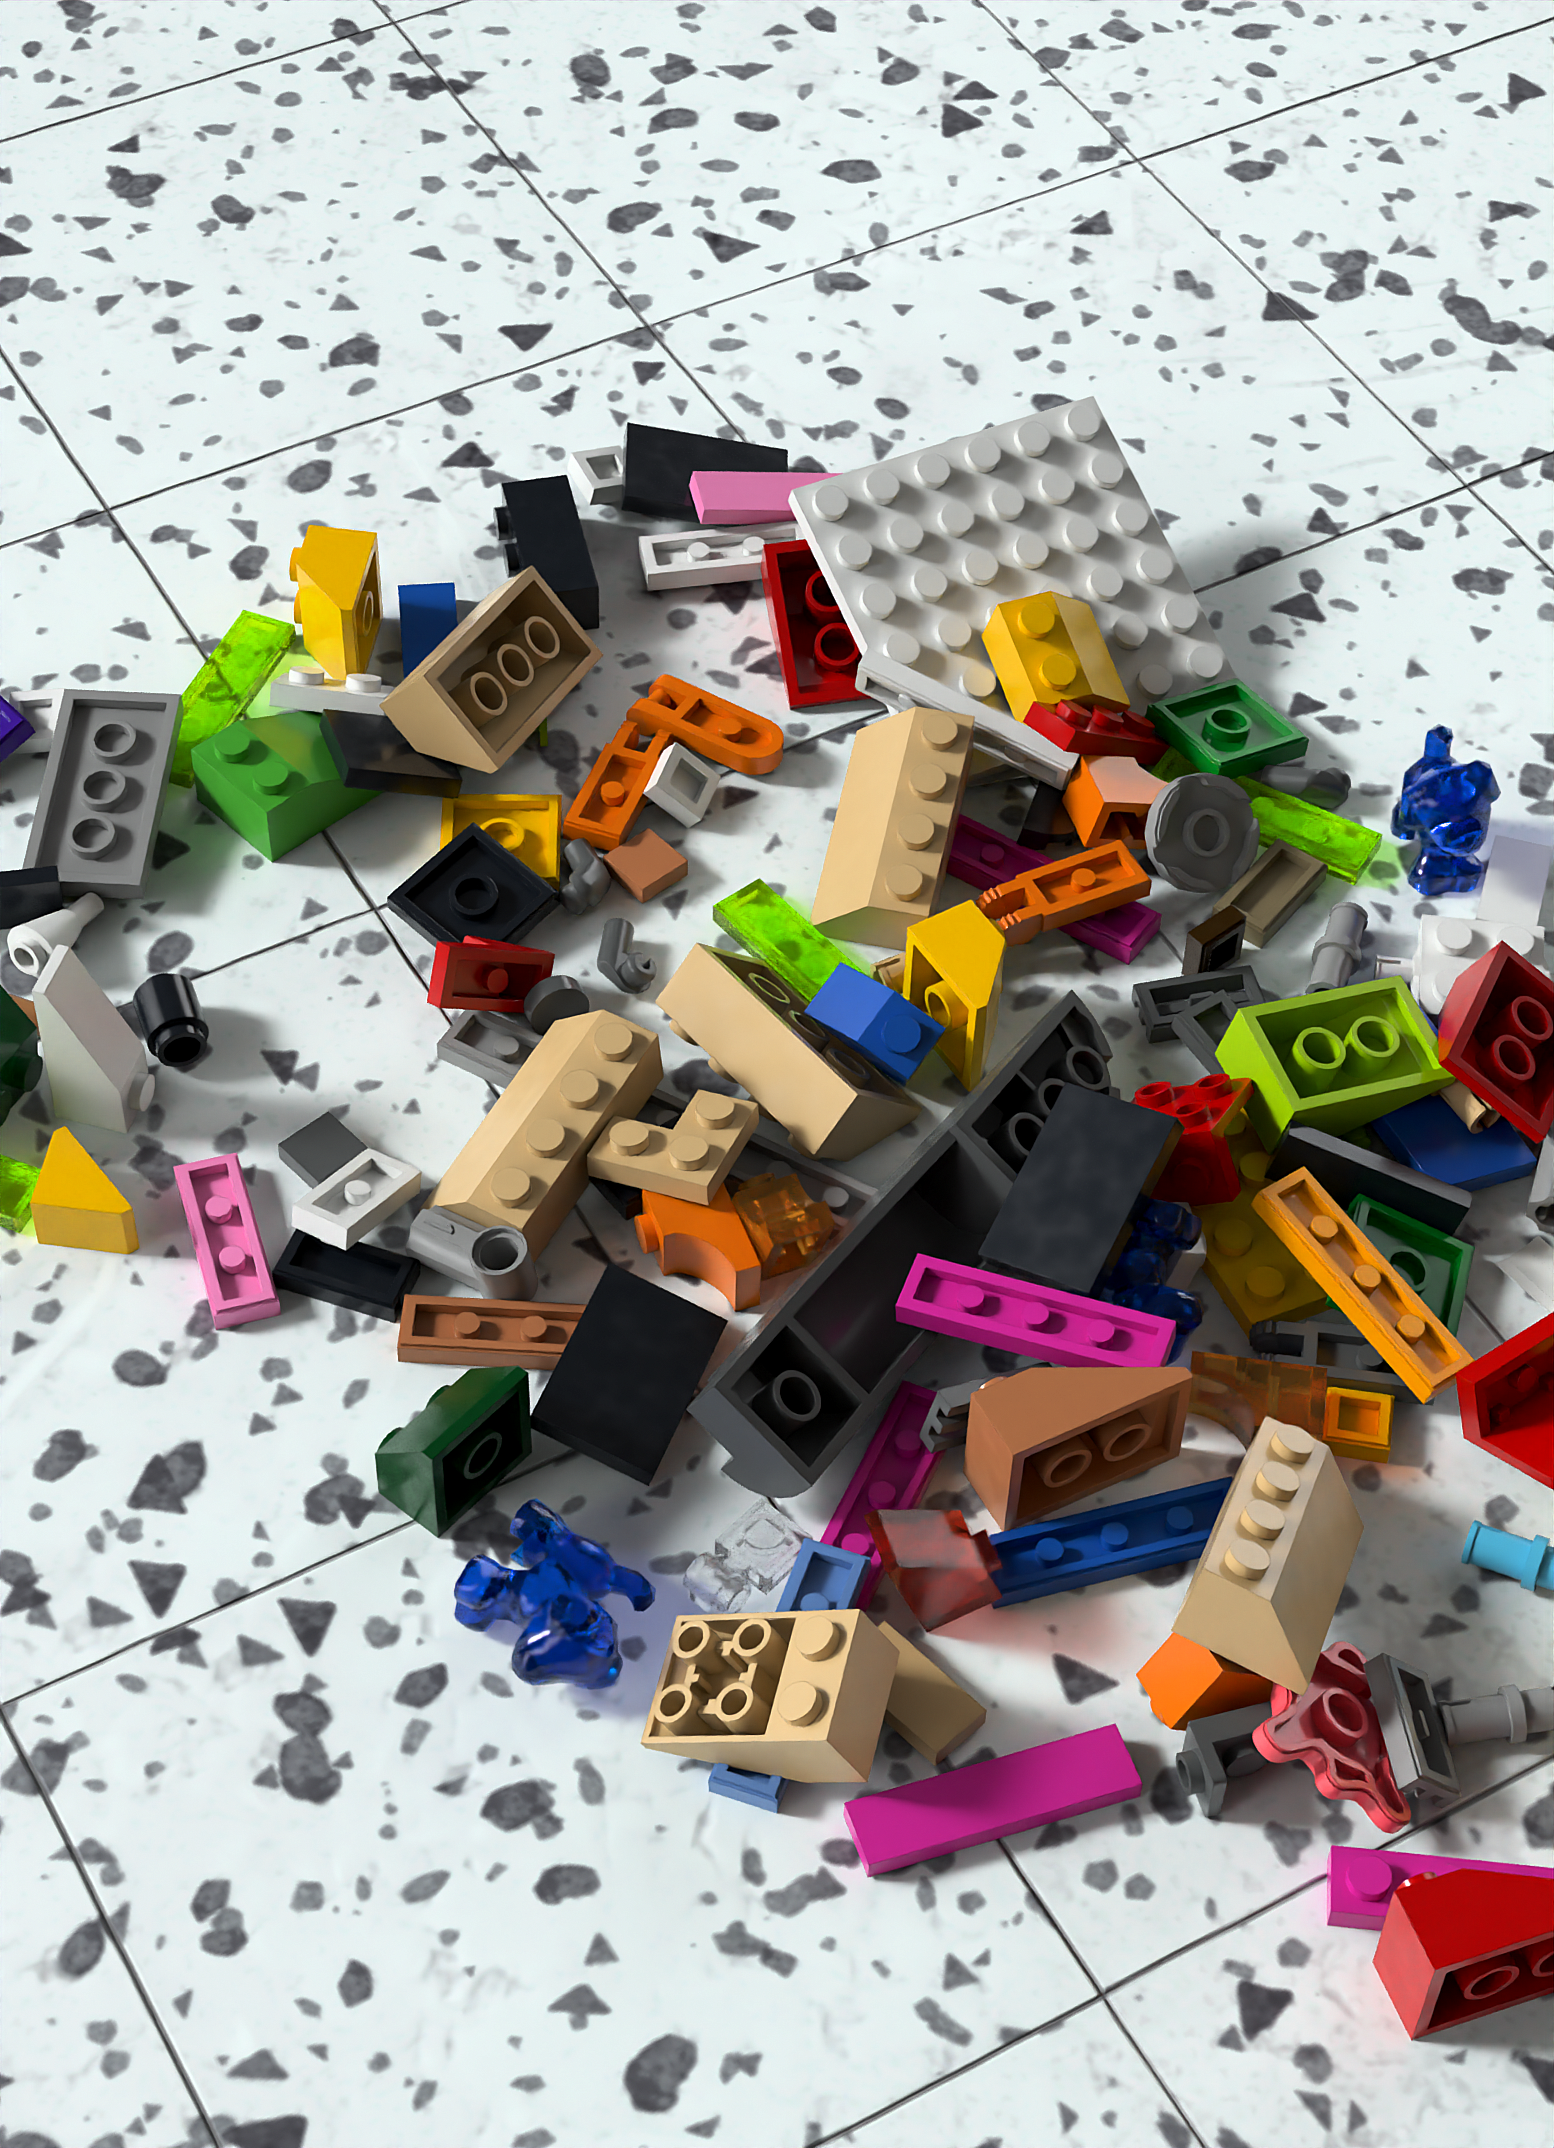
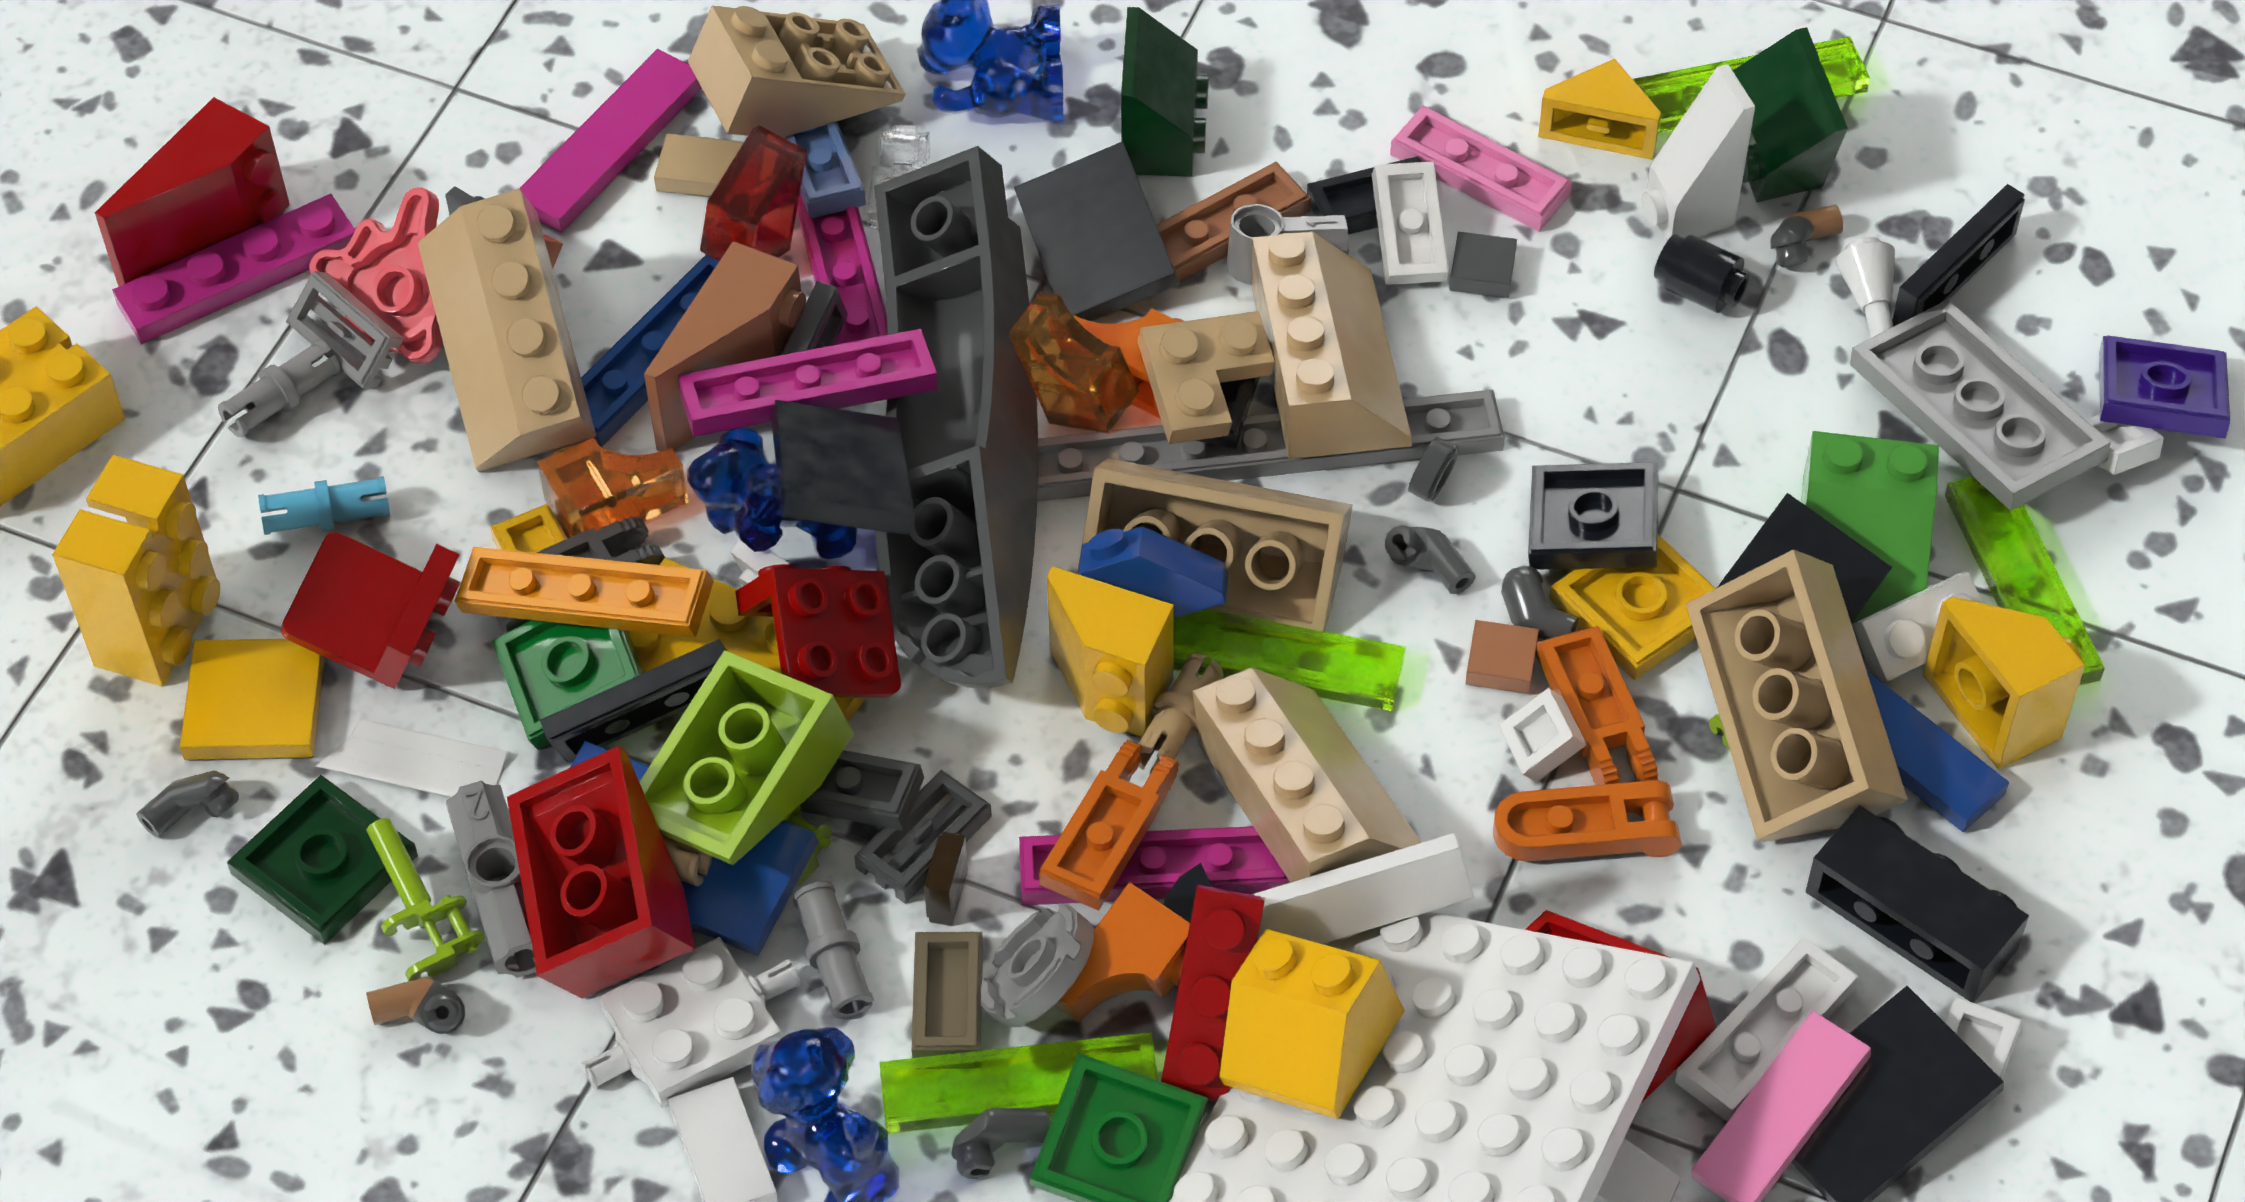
camera: 145 degrees right, 5 degrees up
(486, 974) = (1491, 447): red slope -> none

